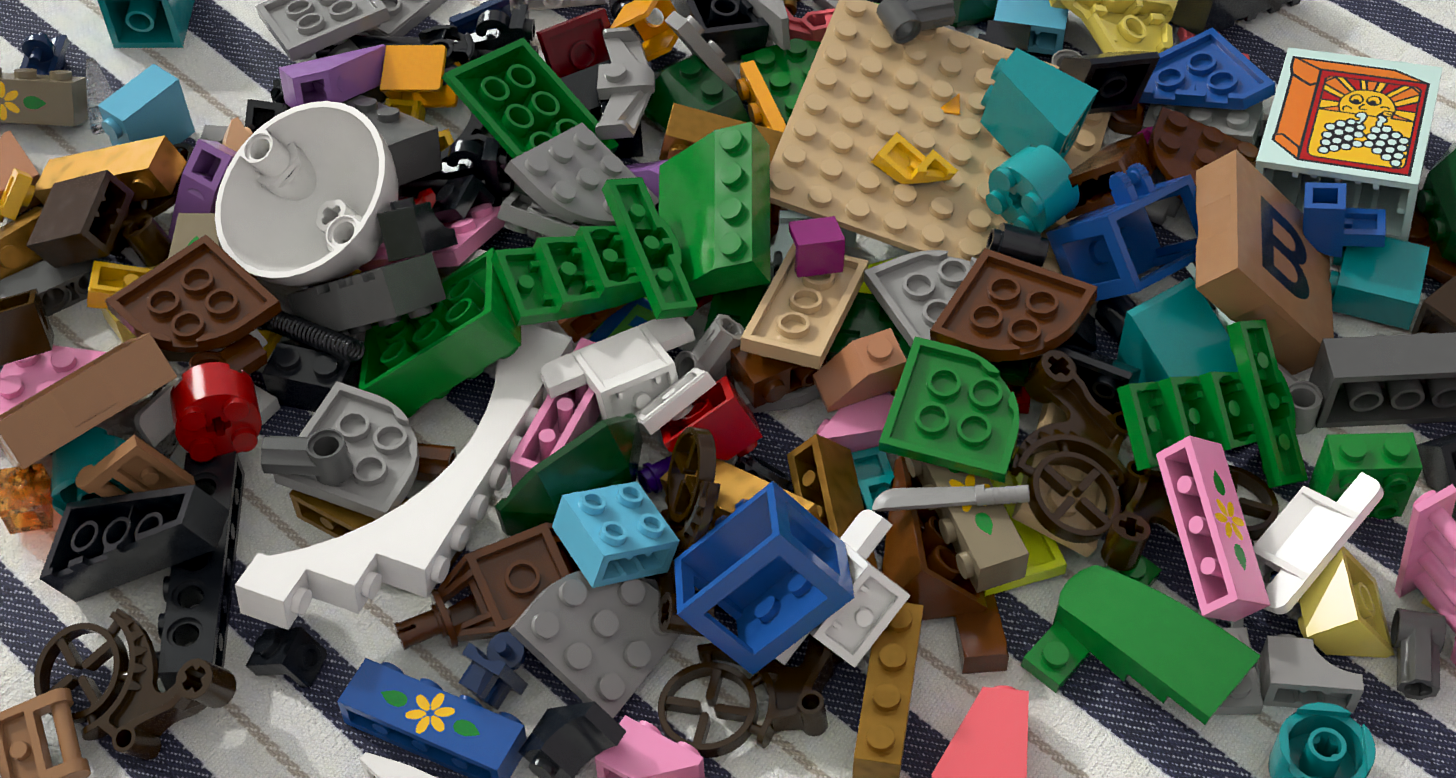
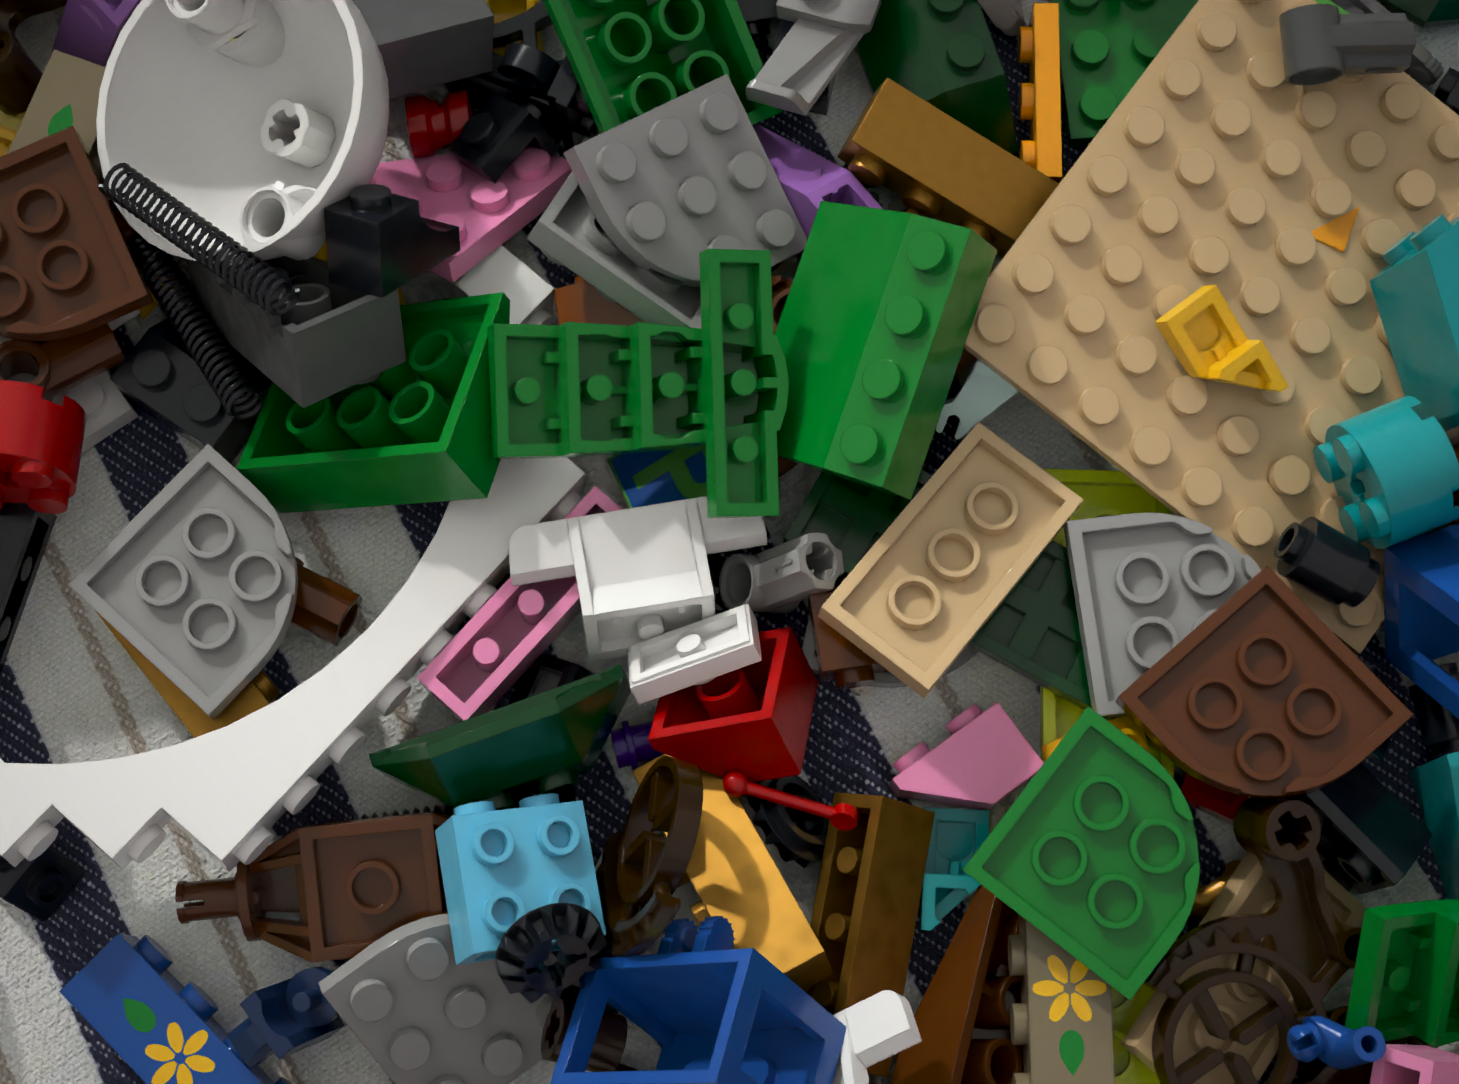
camera: 20 degrees right, 25 degrees up
(319, 455) = (113, 588): dark grey piece -> none
(354, 249) = (241, 252): none -> black piece
(636, 536) = (528, 943): none -> black gear
(796, 454) = (842, 816): none -> red hinge
(818, 246) = (1005, 464): magenta panel -> none
(861, 371) = (992, 708): nougat slope -> none
(935, 497) = (1011, 978): light grey piece -> none
(1136, 469) = (1335, 1043): none -> blue arm

